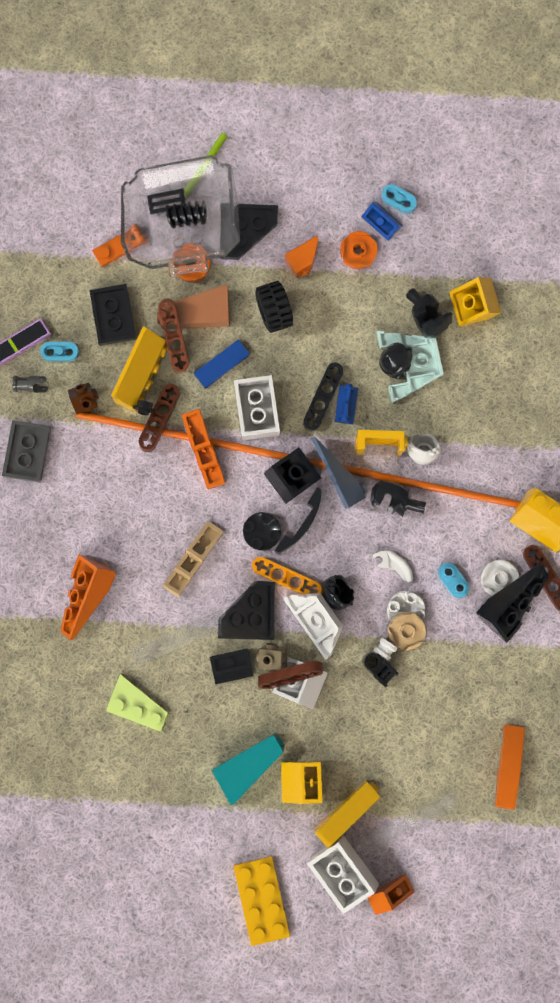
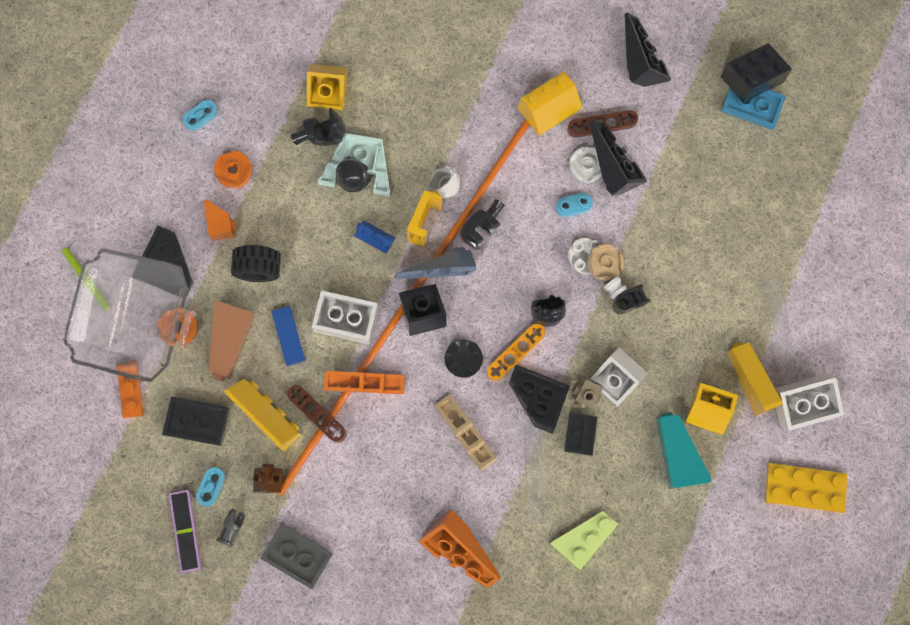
camera: 70 degrees left, 5 degrees down
(144, 407) = (302, 422): black plate -> none
(173, 335) = (243, 368): copper beam -> none
(182, 198) = (111, 310): black tile -> none
(186, 215) = (129, 311): black piece -> none
(287, 542) = (457, 300): black slope -> none
(290, 675) = (610, 380): copper beam -> none
(317, 620) = (566, 338): white wing -> none
(324, 397) = (360, 253): black beam -> none
(381, 220) = (213, 139): blue slope -> none
(390, 895) = (839, 366): orange slope -> none
(395, 562) = (538, 249): white piece -> none
(509, 767) = (759, 220): orange slope -> none

